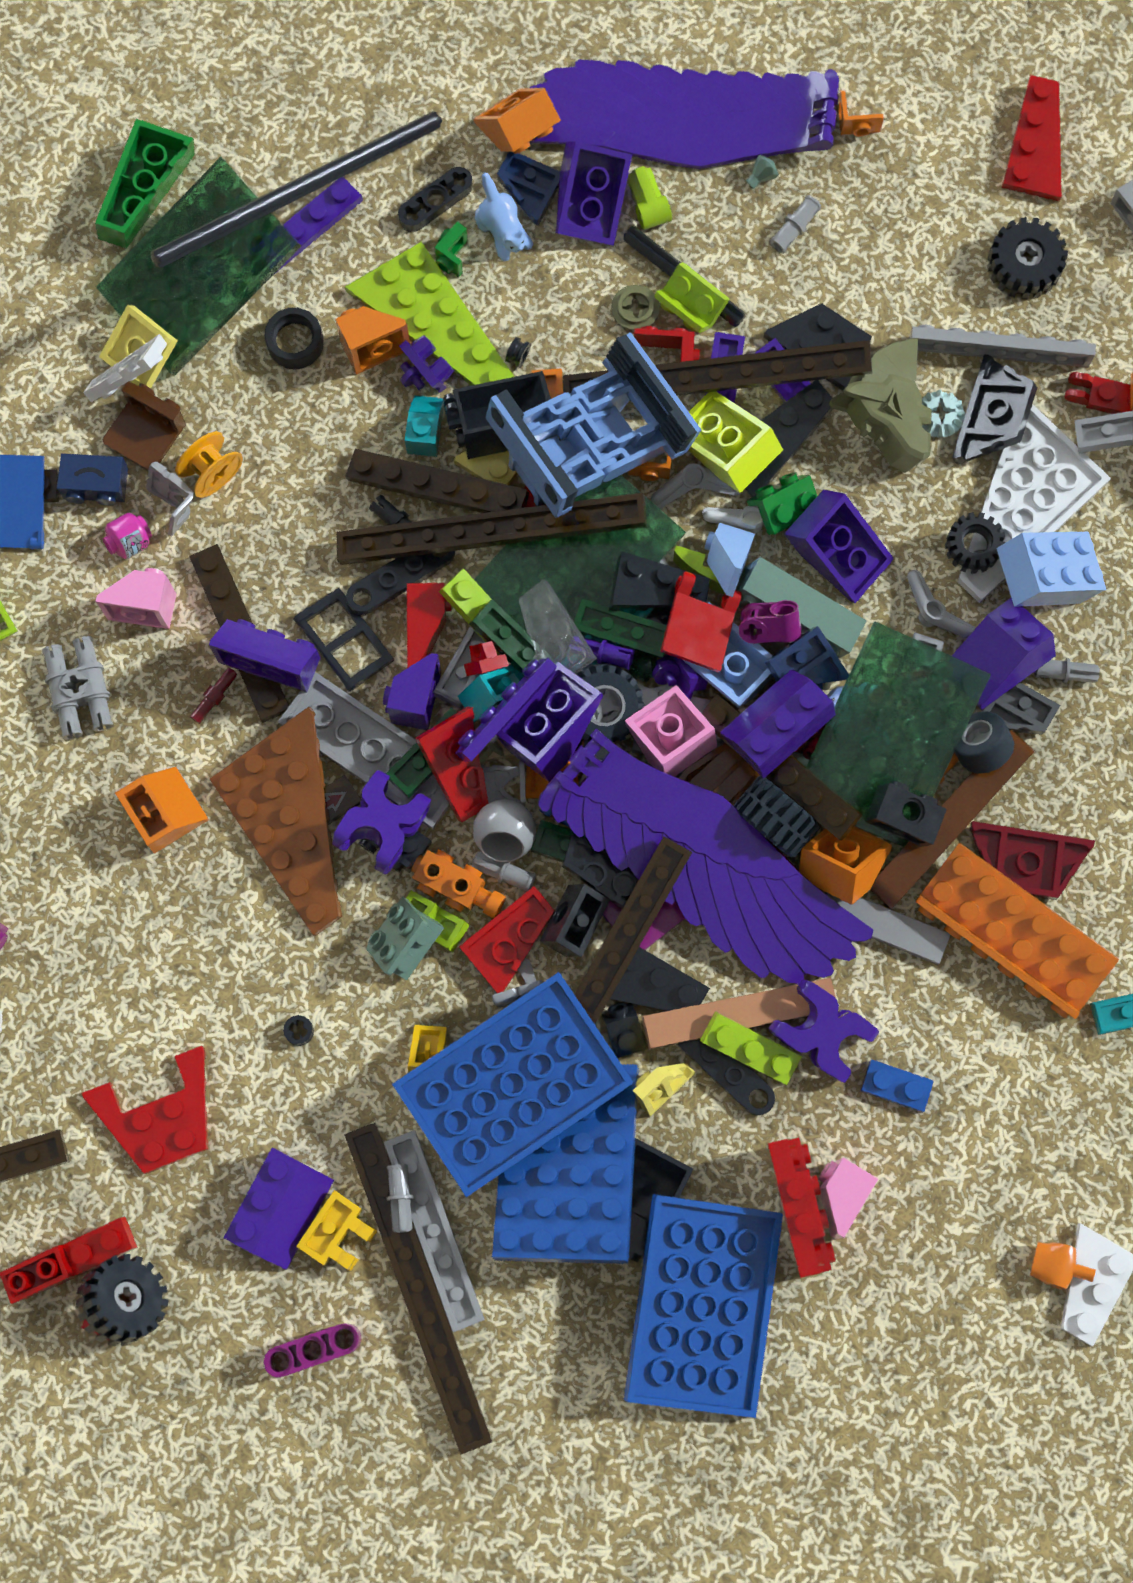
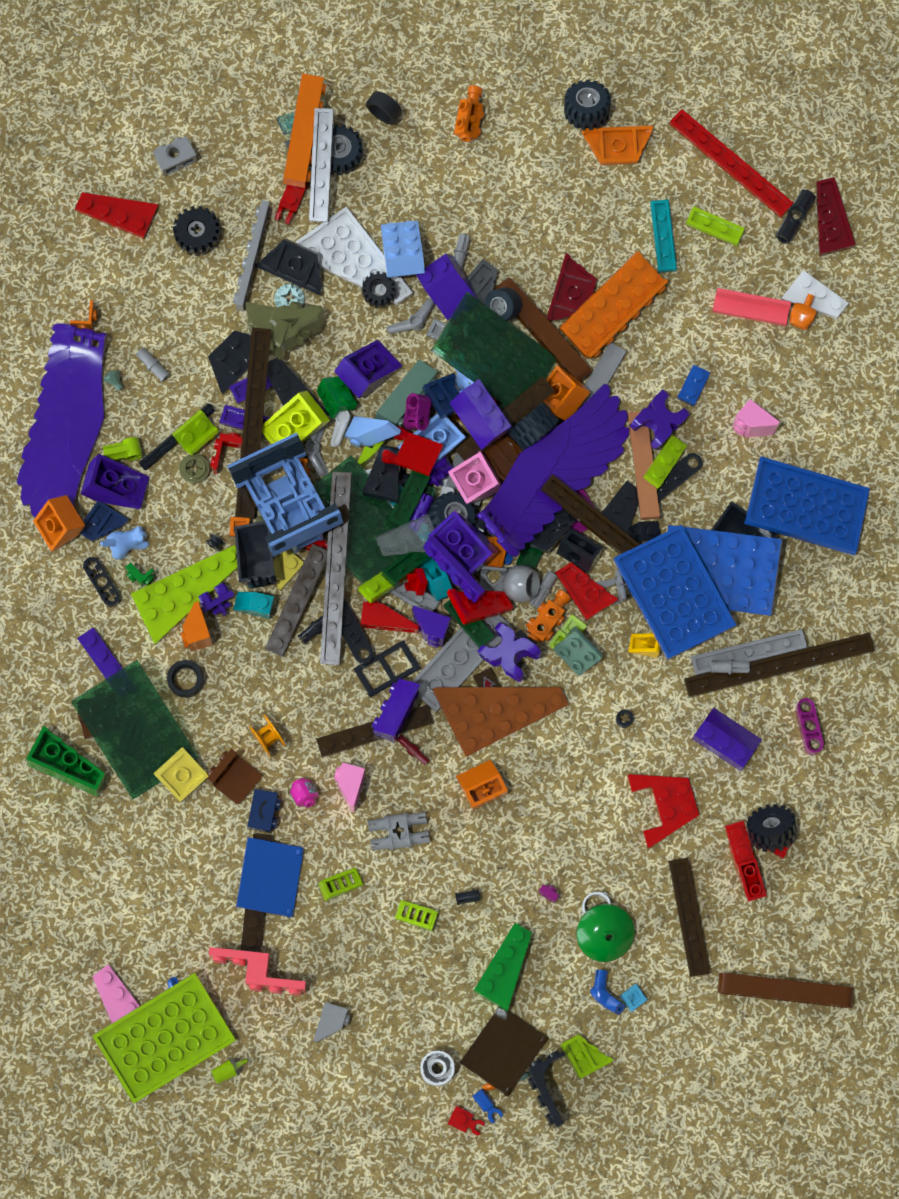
camera: 85 degrees left, 0 degrees up
(126, 369) = (199, 778): white wing -> none
(170, 489) = (278, 762): light grey piece -> none
(294, 190) = (98, 656): black axle -> none
(329, 1229) = (741, 710): yellow plate -> none
(657, 1087) = (682, 517): light yellow wing -> none
(800, 1208) = (757, 445): red bracket -> none
(888, 815) = (540, 362): black brick -> none
(1054, 1172) = (751, 307): none -> coral panel

